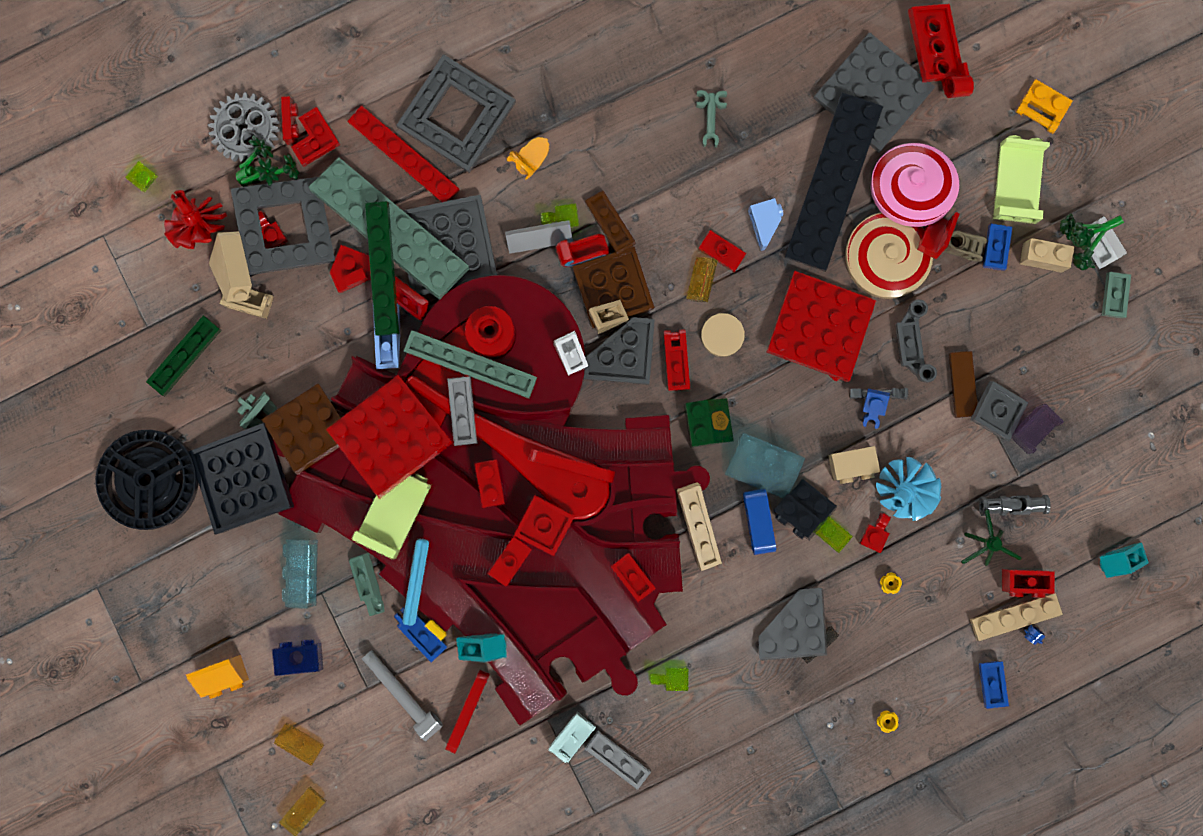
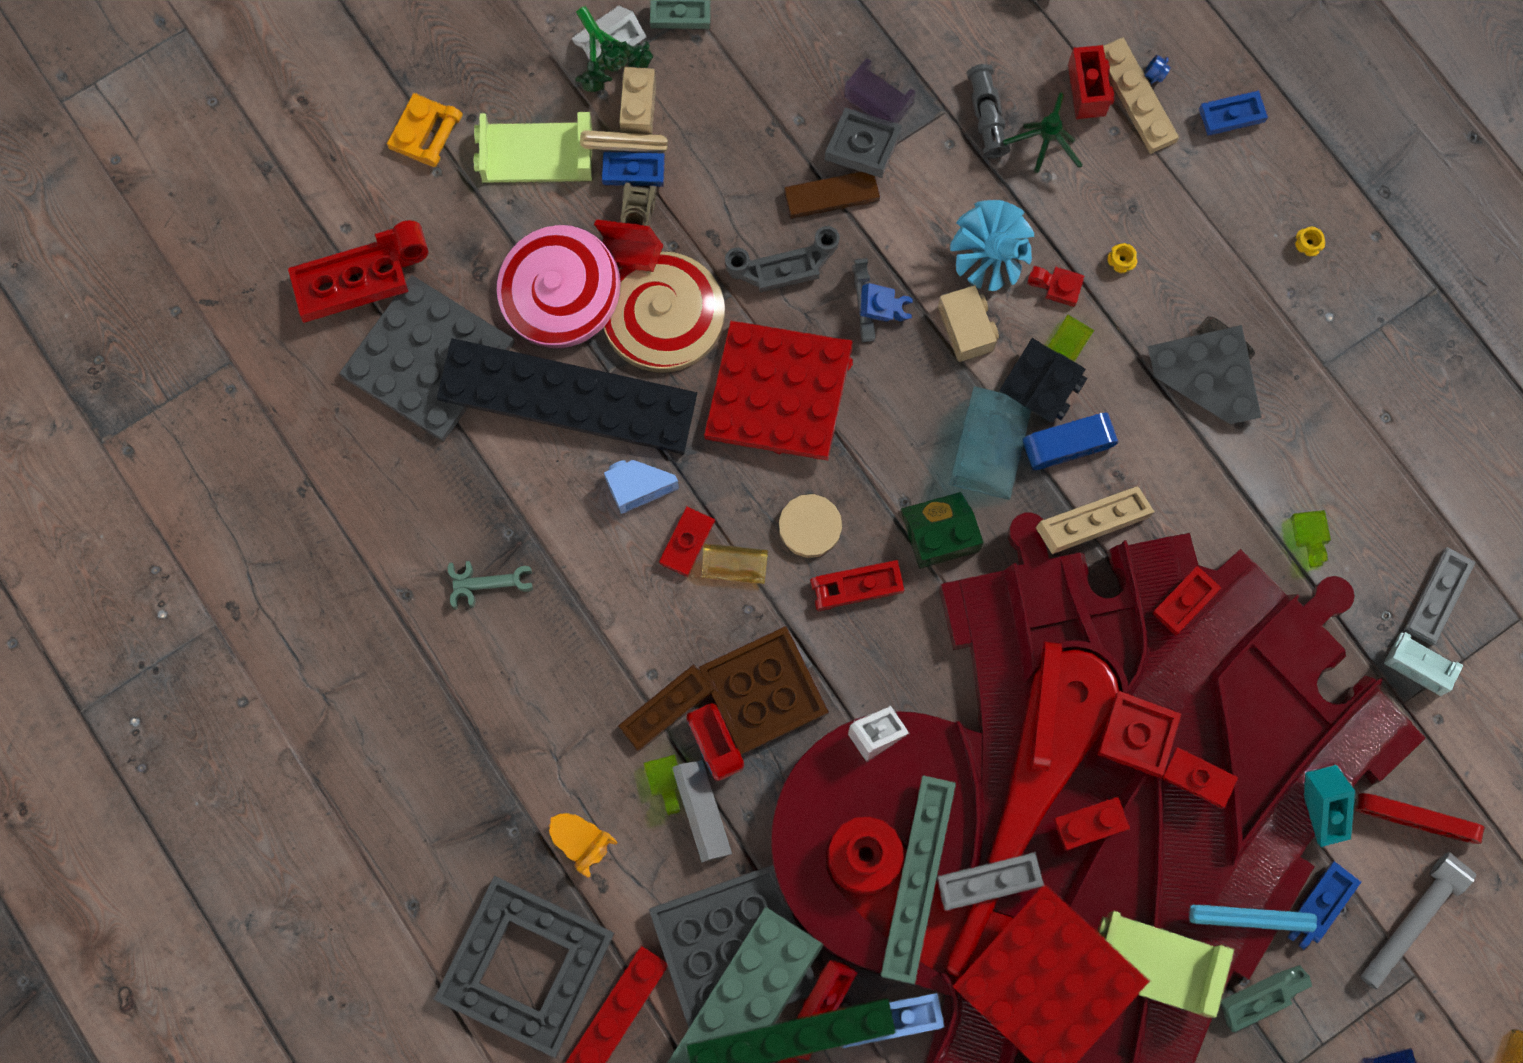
camera: 100 degrees left, 10 degrees down
(436, 630) = (1313, 881): yellow tile -> none
(608, 316) = (811, 688): tan slope -> none
(624, 355) = (860, 660): dark grey plate -> none
(1017, 240) = (623, 141): none -> tan axle

